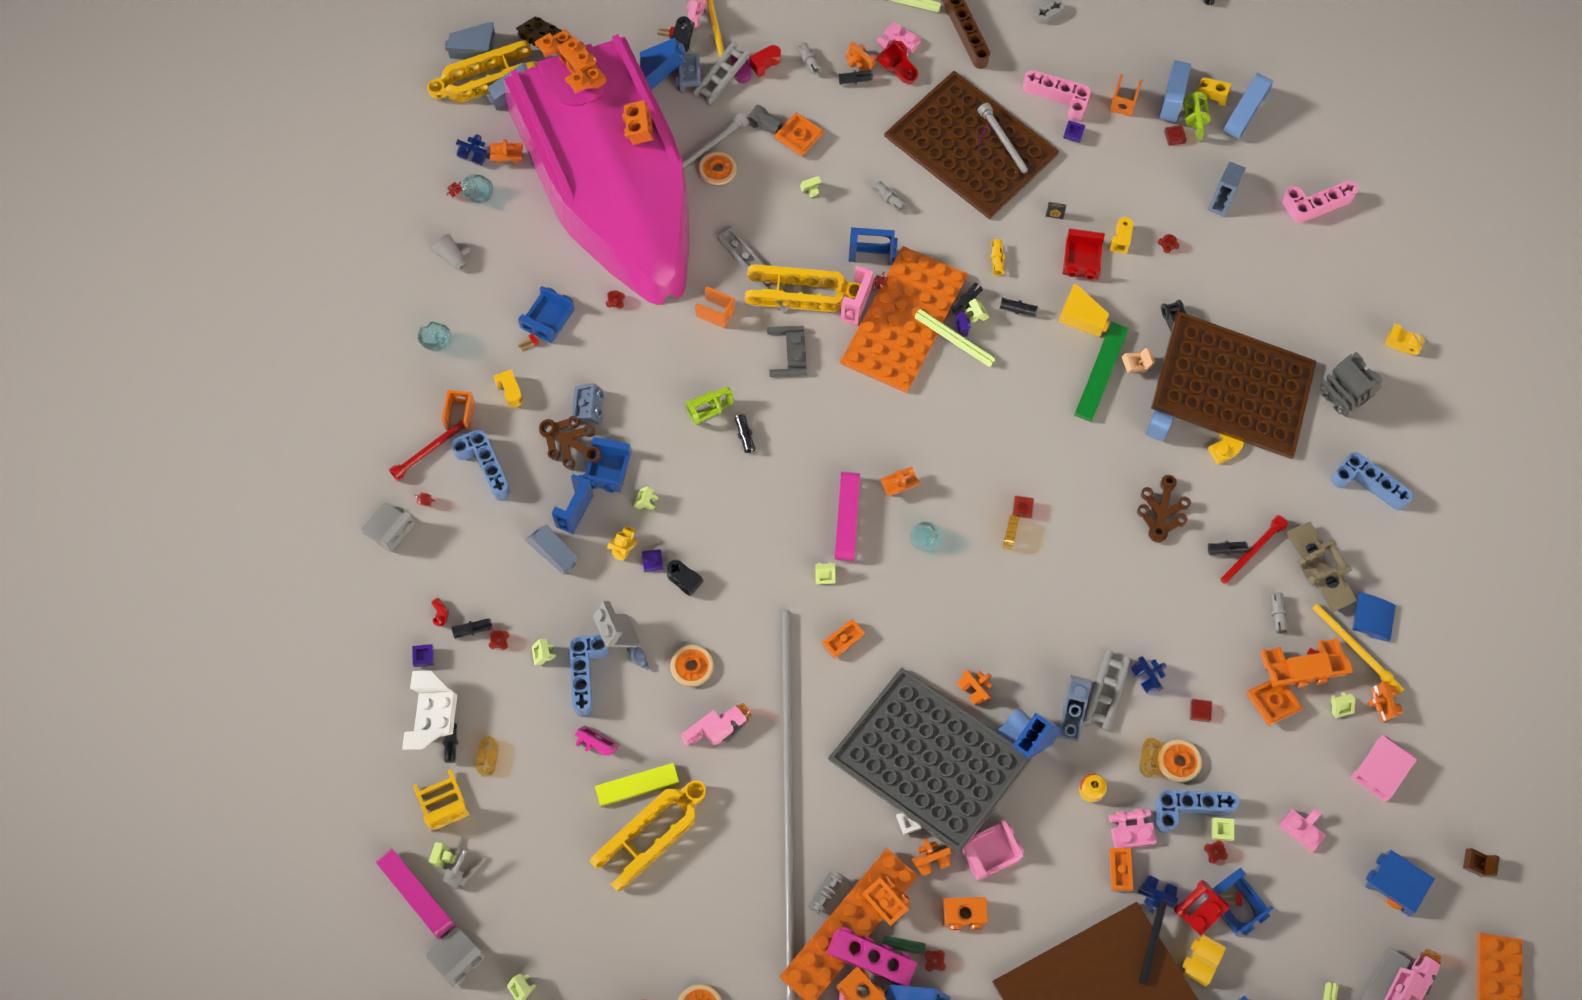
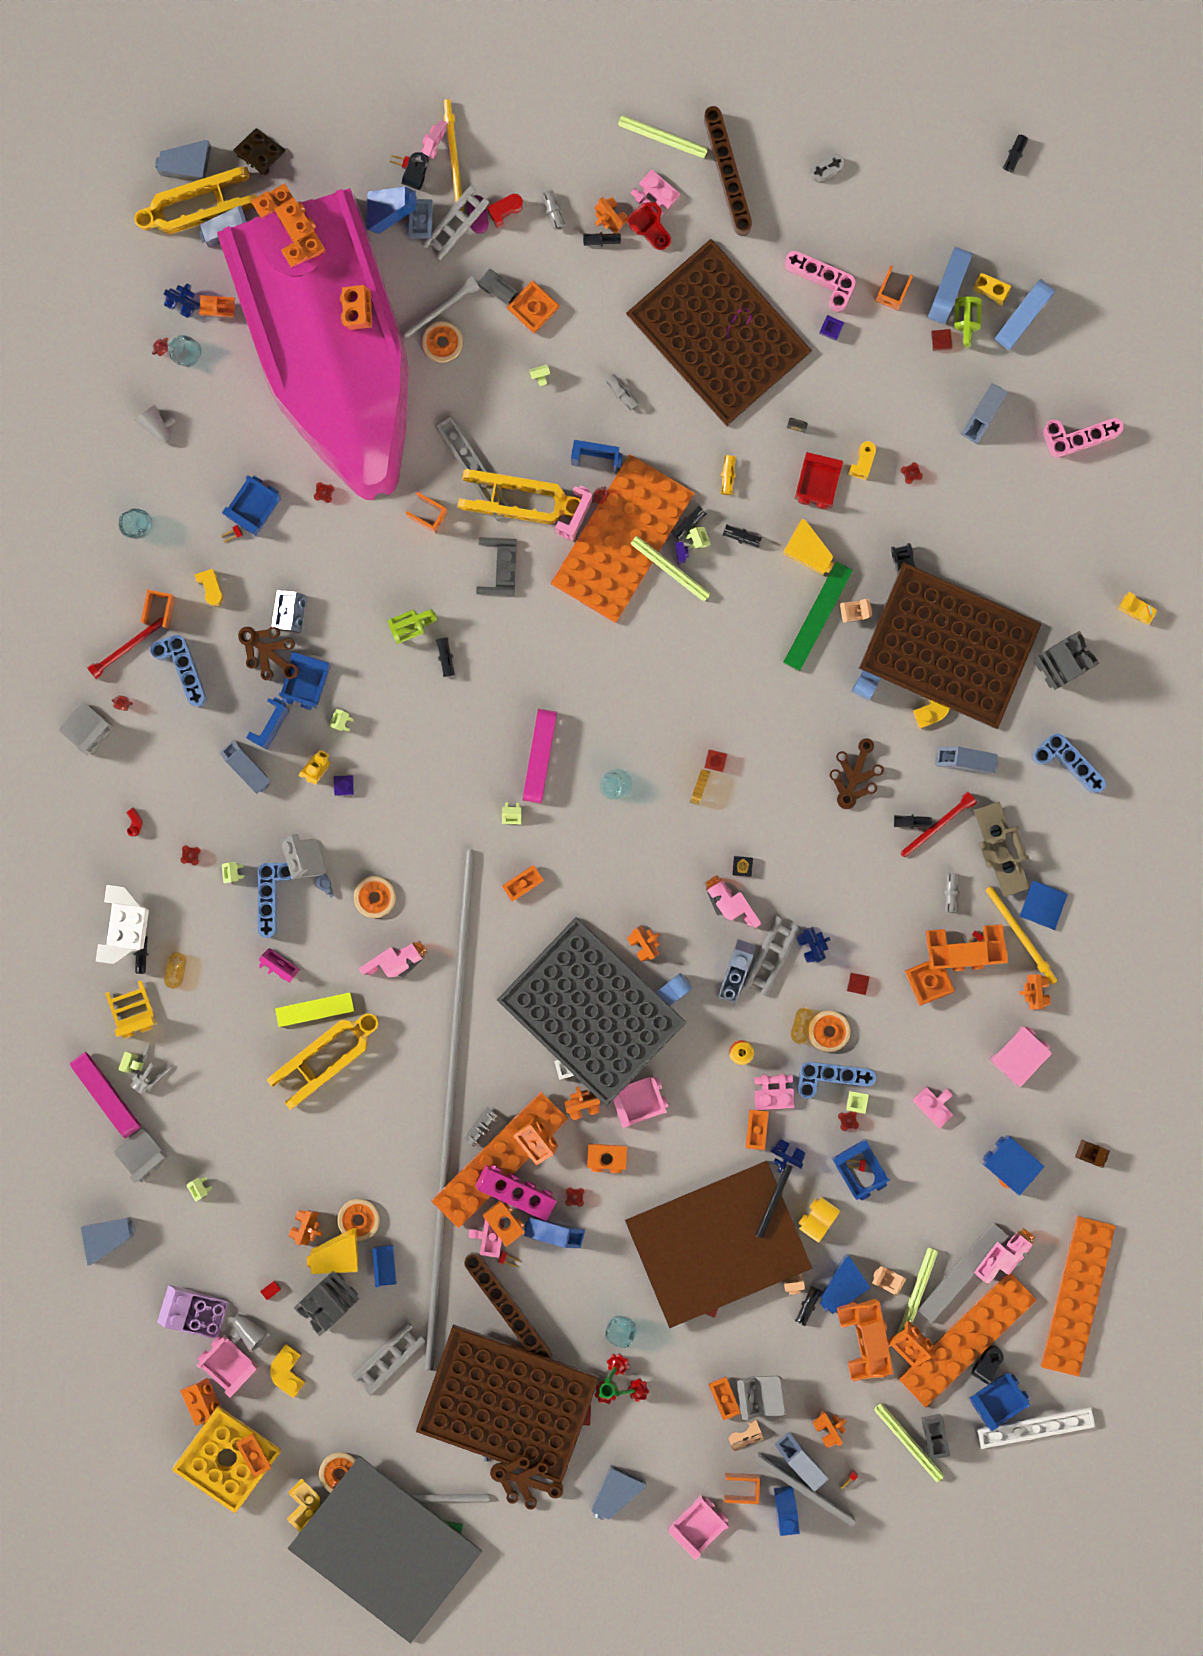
camera: 10 degrees right, 20 degrees up
(423, 655) = (117, 865): dark purple plate -> none
(471, 628) = (164, 841): black axle -> none
(685, 579) = (375, 810): black piece -> none
(899, 481) = (595, 725): orange hips -> none
(904, 945) = (547, 1181): clear green tile -> none
(986, 111) = (738, 299): light grey piece -> none
(1037, 736) = (694, 1001): blue slope -> none
(1059, 642) = (727, 904): none -> bright pink plate
(1064, 605) = (742, 866): none -> black tile
(1207, 912) = (827, 1178): red plate -> none
(1270, 484) = (966, 759): none -> sand blue slope
(1342, 705) = (994, 992): yellowish green tile -> none

